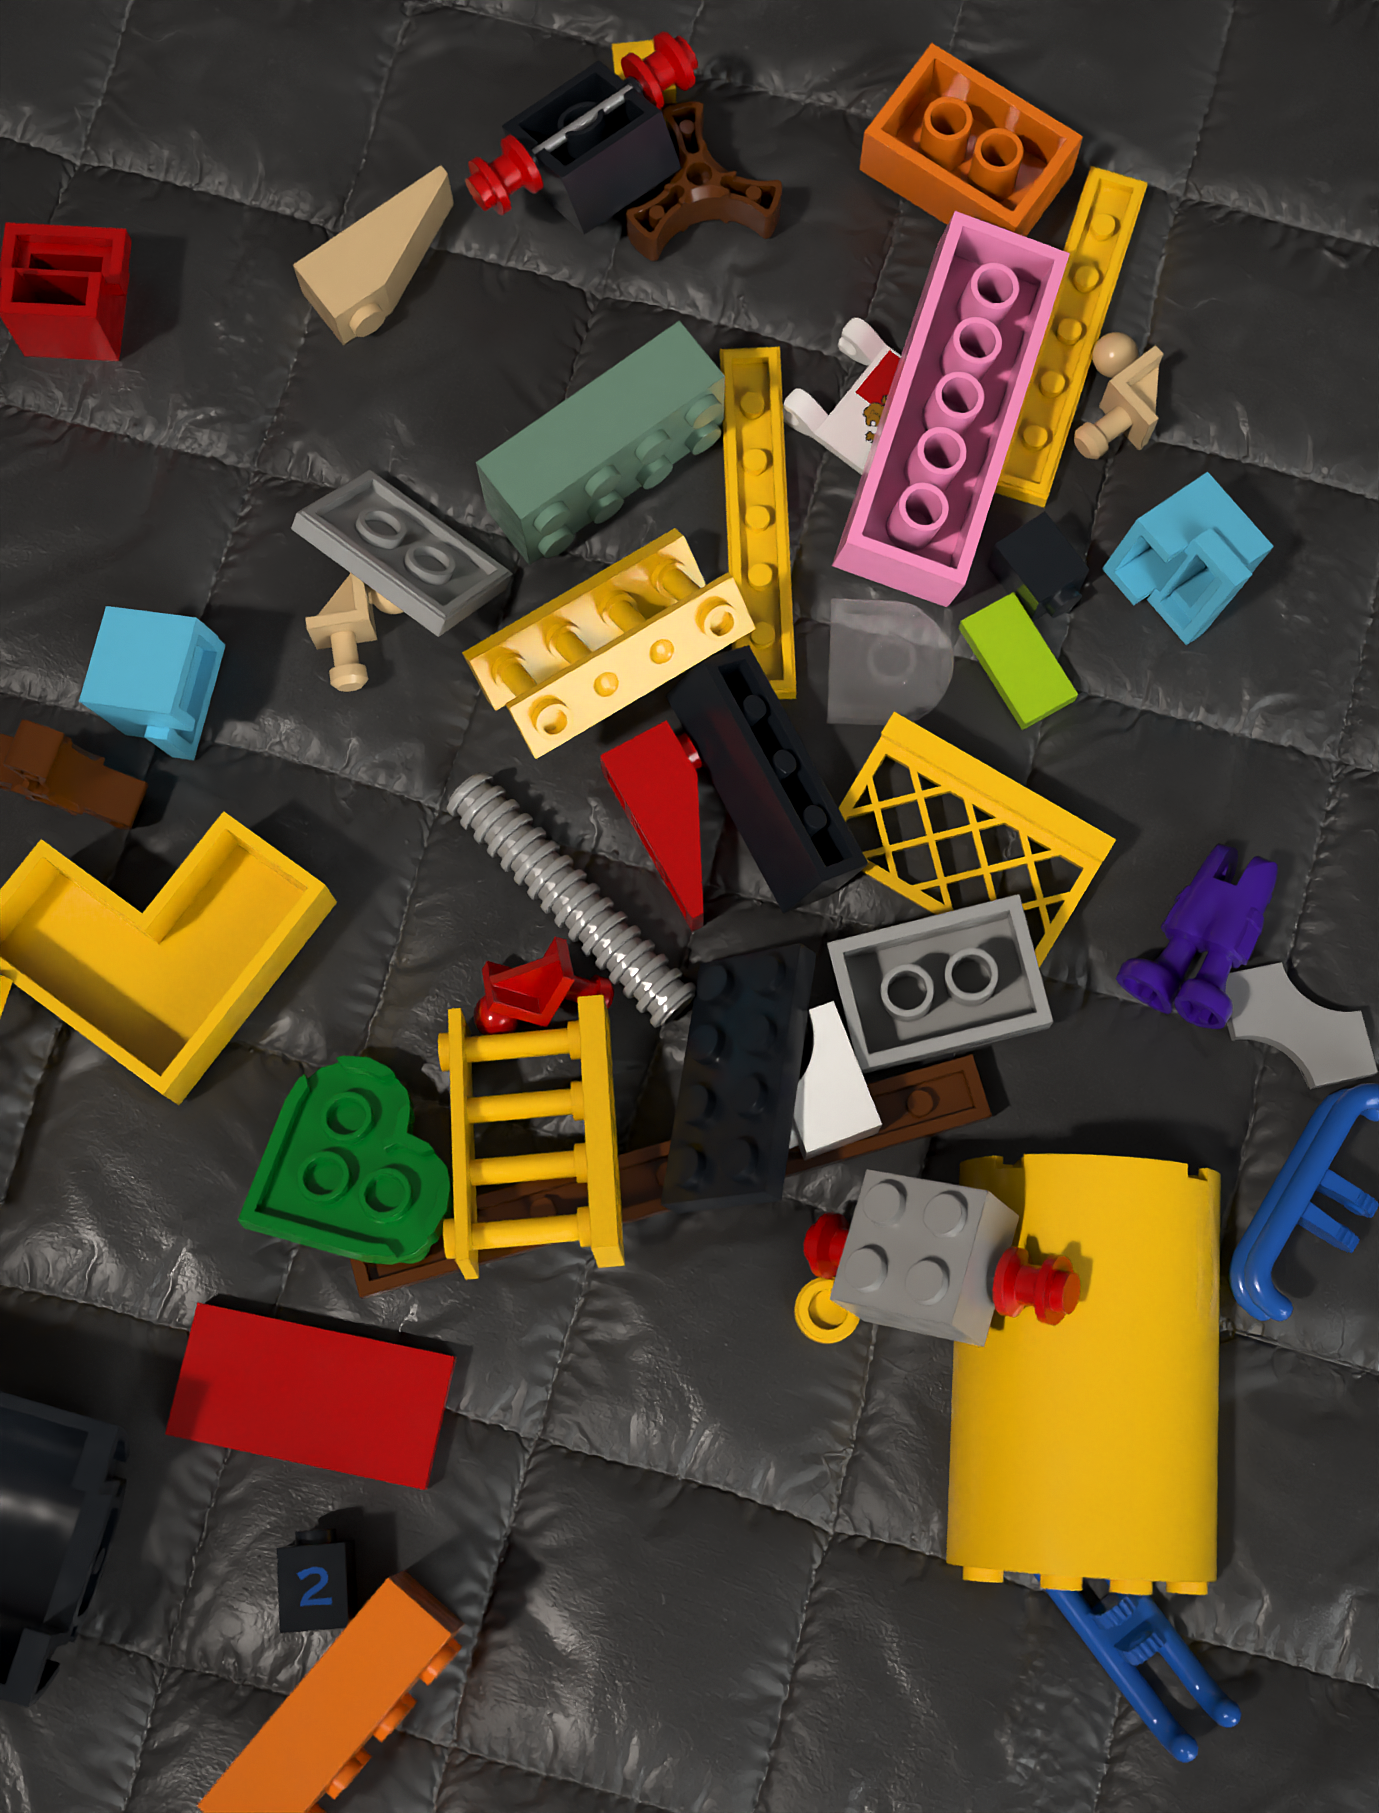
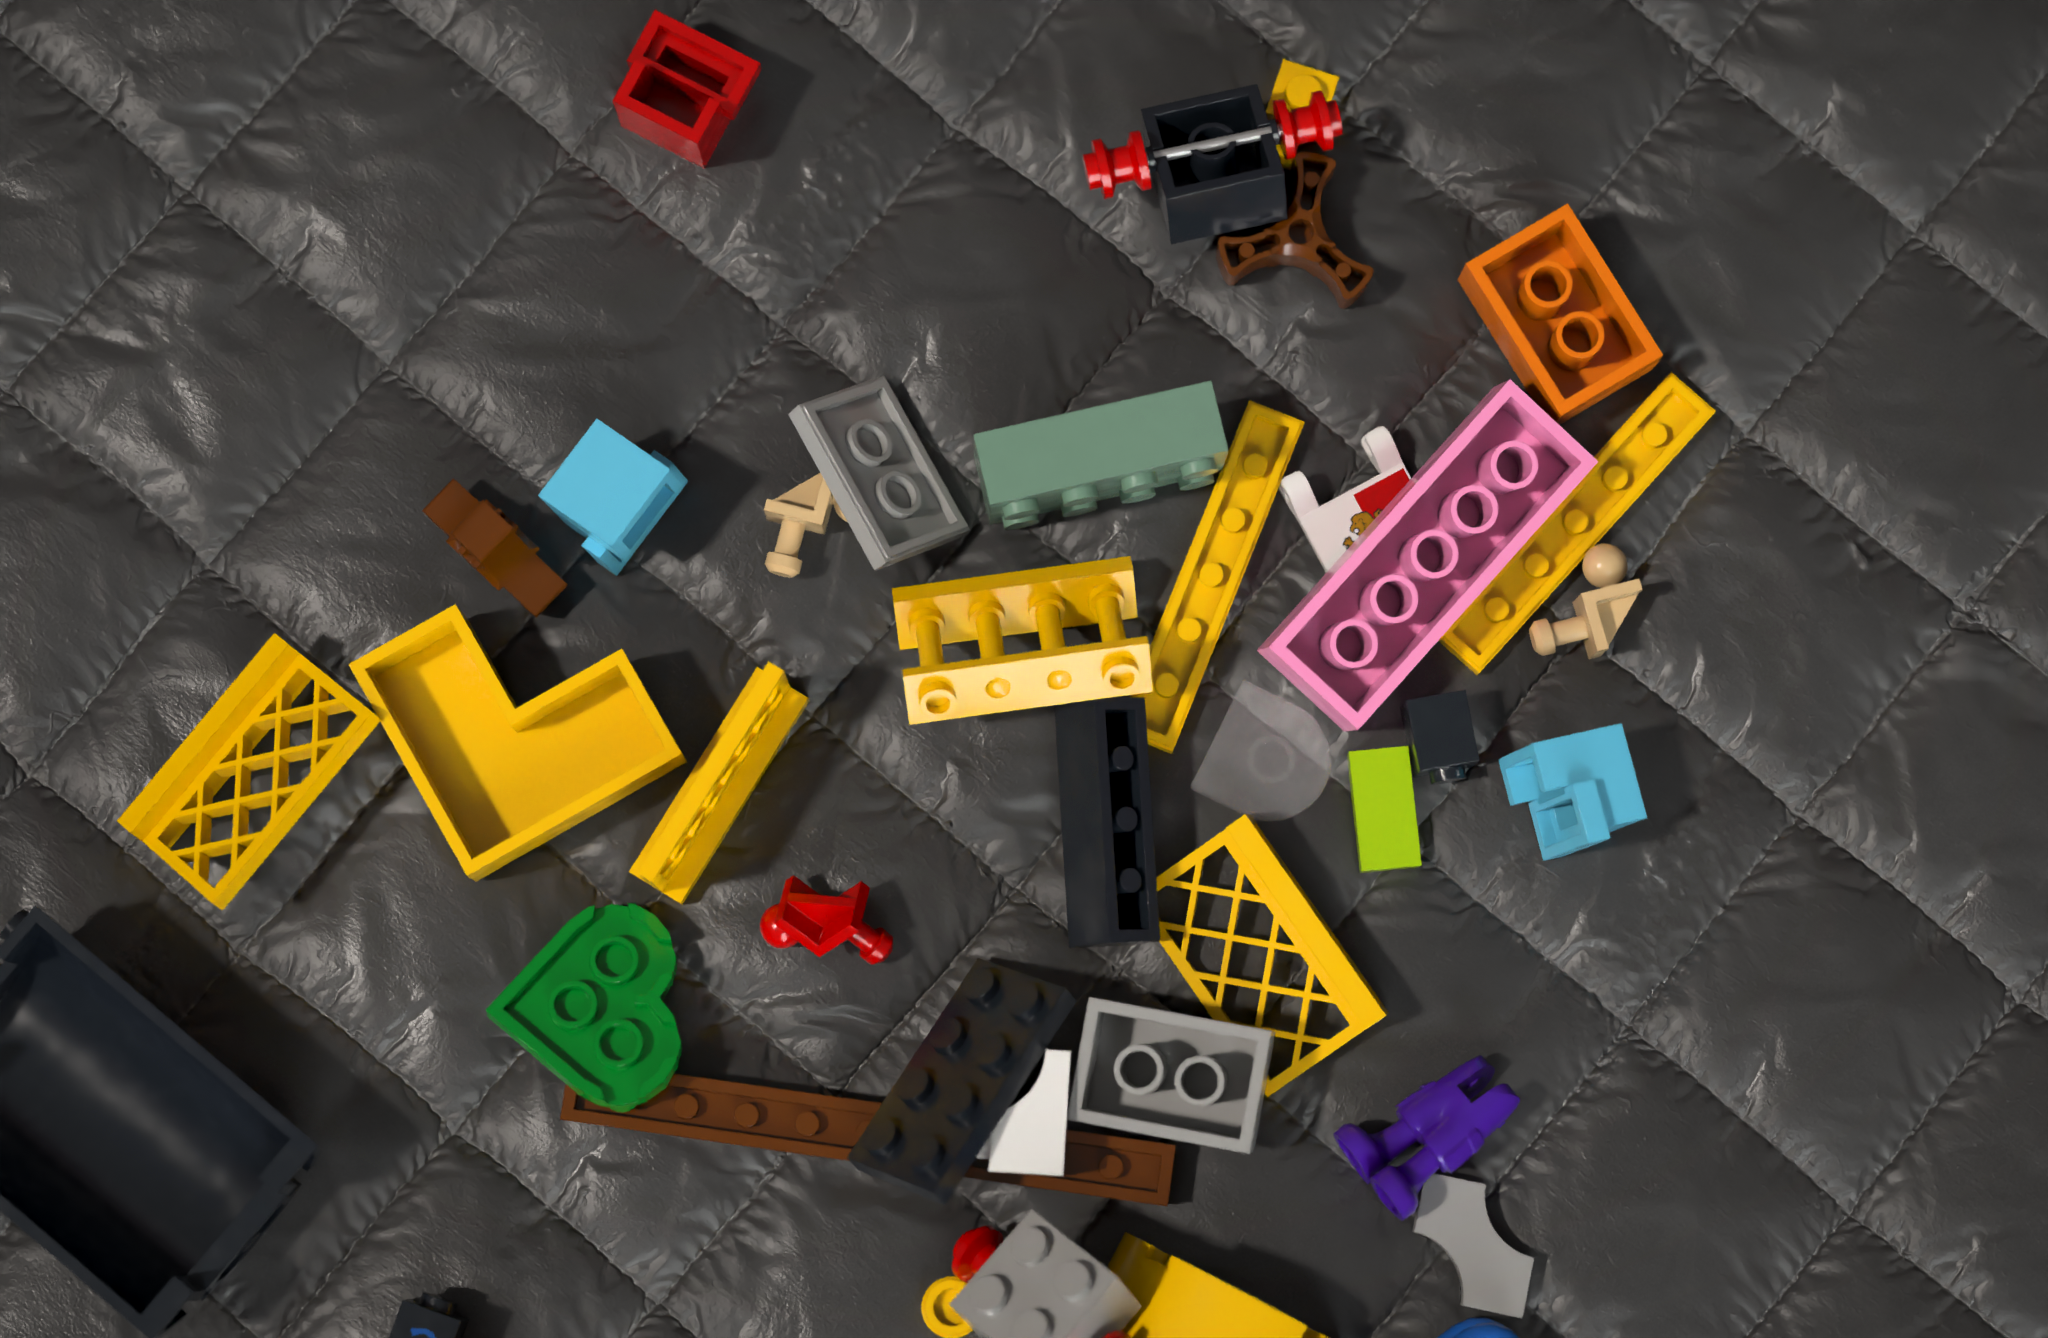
camera: 20 degrees right, 5 degrees up
(311, 1396) = (484, 1183): red tile -> none
(369, 264) = (965, 183): tan slope -> none
(378, 904) = (720, 783): none -> yellow fence
(570, 898) = (890, 850): light grey piece -> none
(590, 1162) = (804, 1094): yellow fence -> none
(659, 794) = (1009, 800): red slope -> none

